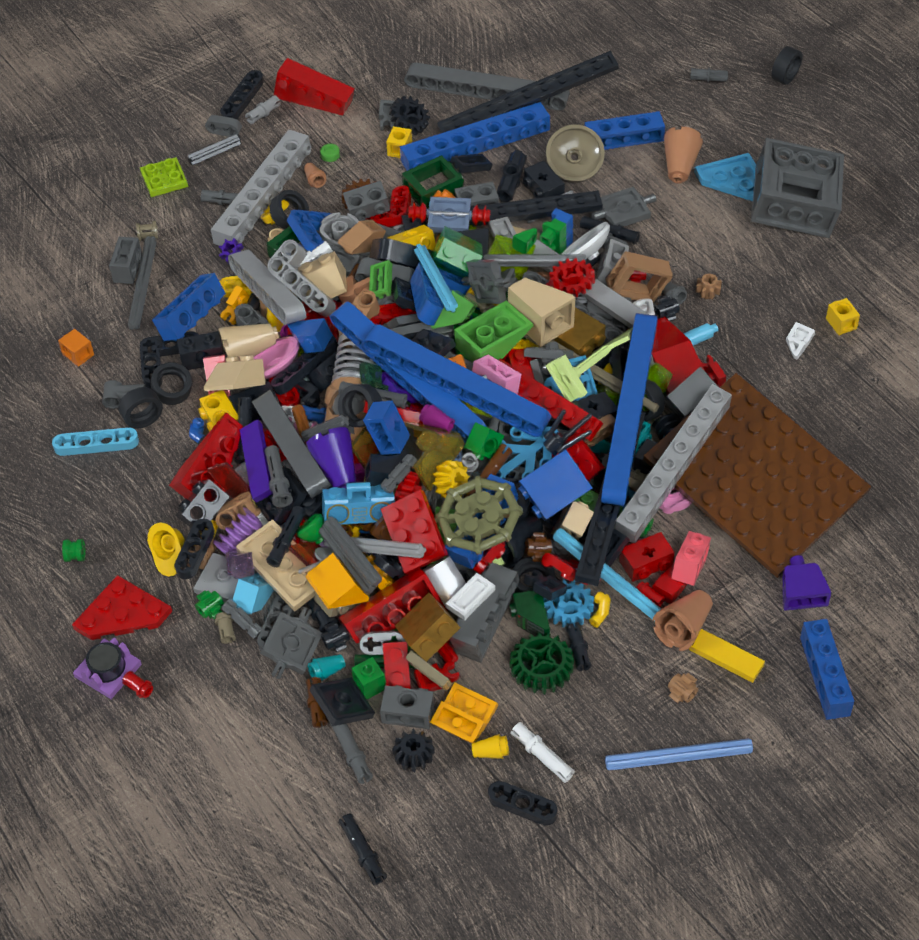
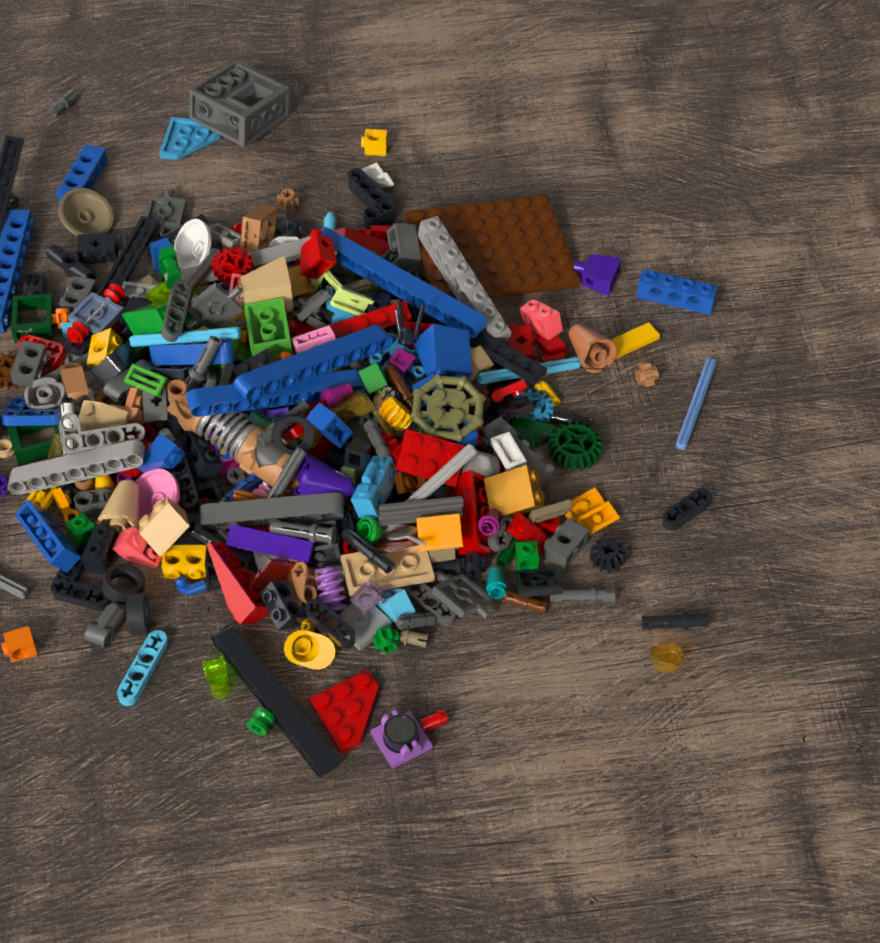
camera: 65 degrees left, 0 degrees up
(101, 551) = (275, 700): none -> black beam
(108, 496) = (216, 673): none -> clear neon green piece
(211, 323) = (80, 529): none -> green brick
(307, 857) = (666, 657): none -> clear yellow hair
(379, 622) = (490, 522): none -> magenta cone
(402, 307) = (198, 372): none -> dark grey pin
(453, 250) = (173, 309): none -> dark grey beam
(491, 747) = (631, 506): yellow cone -> none
(524, 455) = (402, 361): none -> magenta plate
(534, 745) = (644, 480): white pin -> none
(608, 329) = (317, 255): none -> red torso
(681, 152) = (140, 153): nougat cone -> none
(753, 363) = (380, 207): none -> black beam
(787, 65) = (101, 52): black tyre -> none

